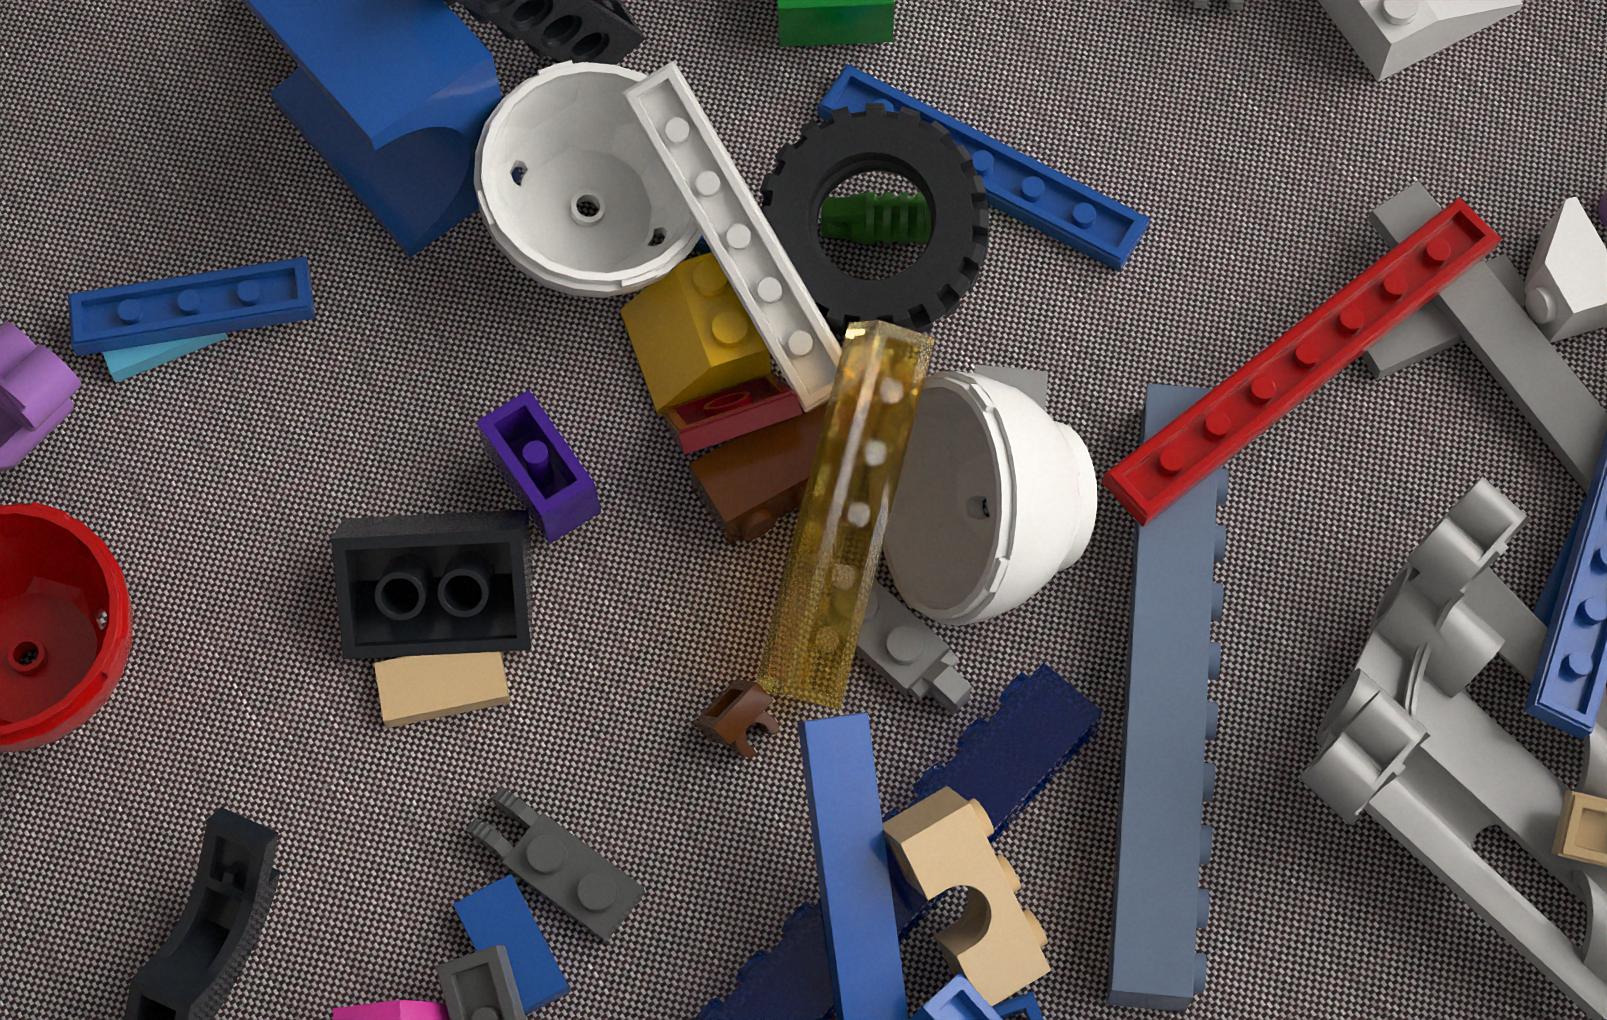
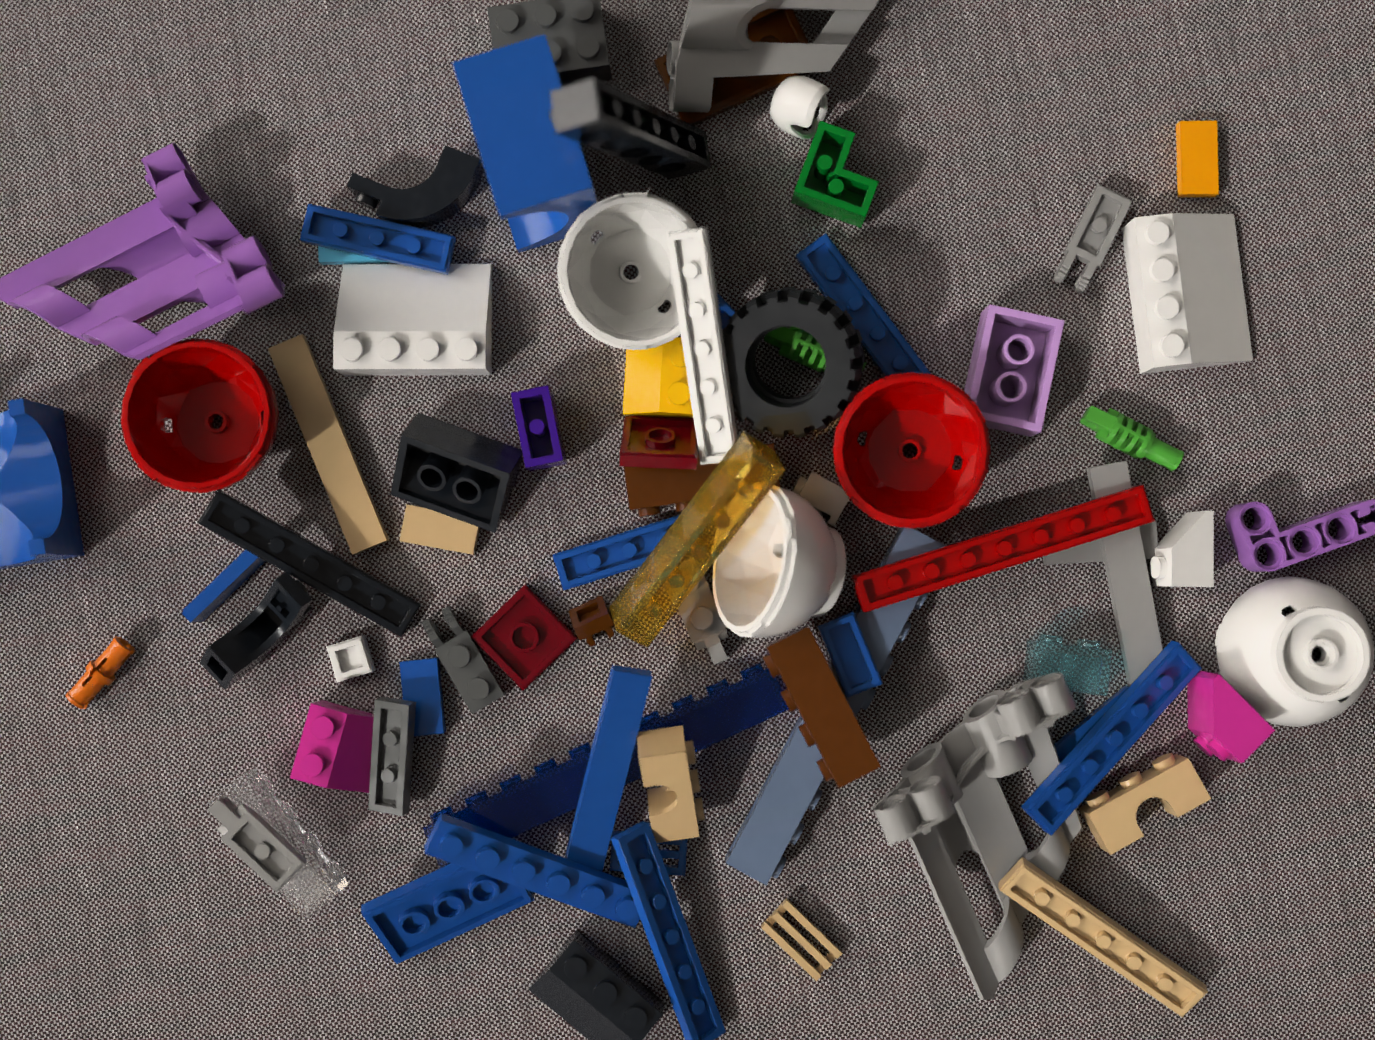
camera: 25 degrees right, 20 degrees up
(131, 879) = (222, 587): none -> blue tile
(223, 631) = (328, 444): none -> tan tile
(248, 231) = (429, 202): none -> black arch
(289, 404) = (413, 321): none -> white slope
(294, 803) = (309, 562): none -> black tile
(371, 935) = (350, 658): none -> white tile
(639, 791) = (524, 637): none -> dark red tile
(717, 619) = (609, 554): none -> blue tile
(1111, 220) = (939, 423): none -> red piece
(1147, 677) = (822, 705): none -> reddish brown brick
(1154, 592) = (849, 654): none -> blue tile
(1195, 131) = (1013, 368): none -> lavender brick
(1407, 158) = (1131, 437): none -> bright green hinge
(1511, 467) = (1083, 666): none -> clear light blue brick

